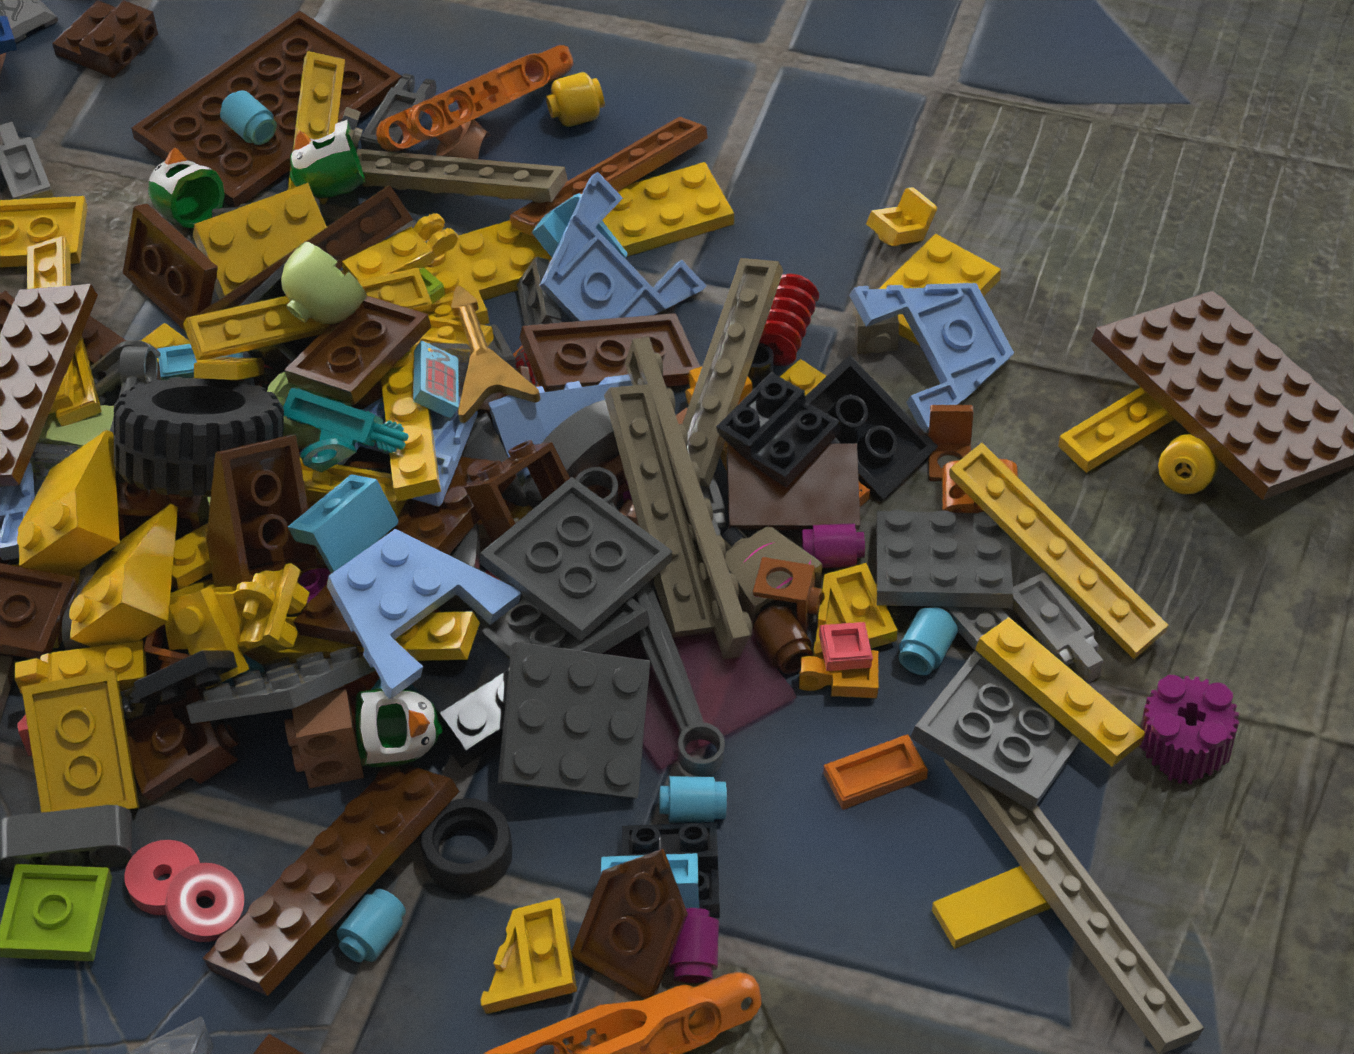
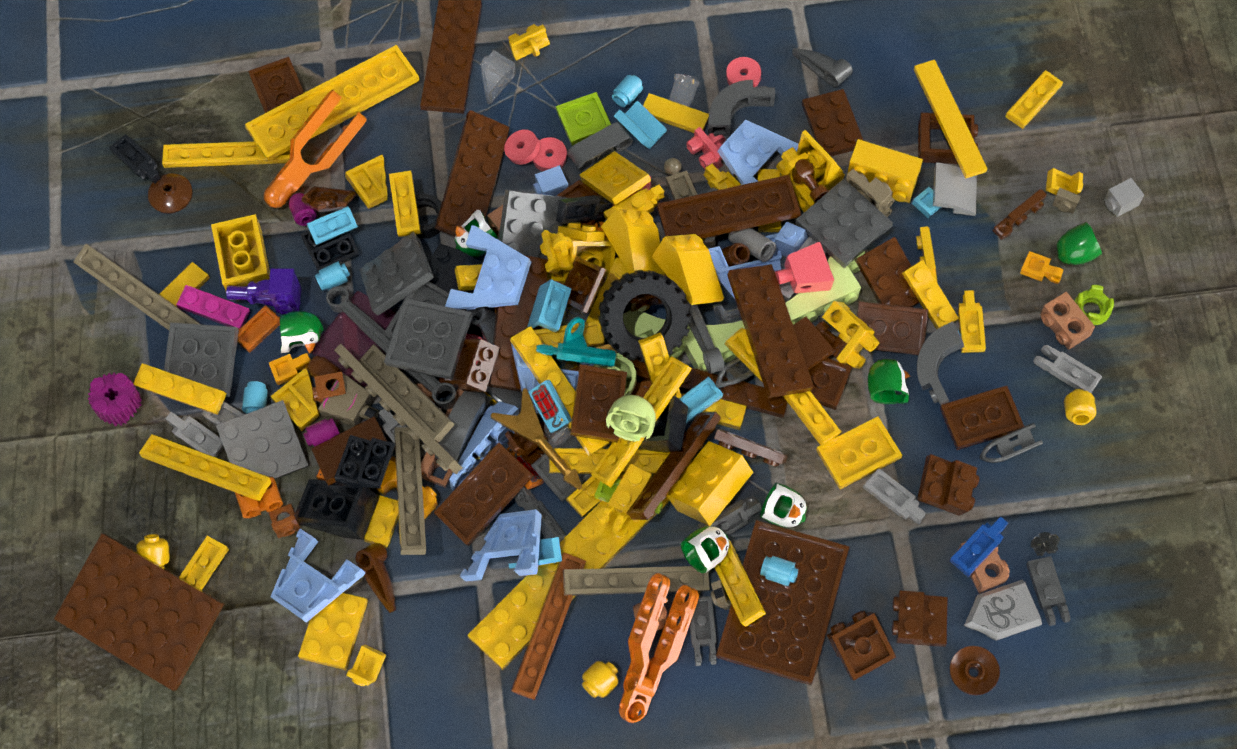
camera: 155 degrees right, 15 degrees up
(198, 805) = (550, 181): none -> light blue brick
(204, 30) = (861, 644): none -> reddish brown plate
(371, 926) = (443, 164): medium azure brick -> none
(489, 847) = (404, 203): none -> yellow plate
(789, 317) = (401, 565): red piece -> none
(800, 711) = (299, 329): none -> green piece
(806, 785) = (280, 291): none -> dark purple brick
(833, 329) = (371, 561): none -> reddish brown piece
(845, 646) = (290, 372): coral tile -> none
(850, 894) = (240, 251): none -> yellow brick
(946, 833) = (212, 307): none -> dark pink plate

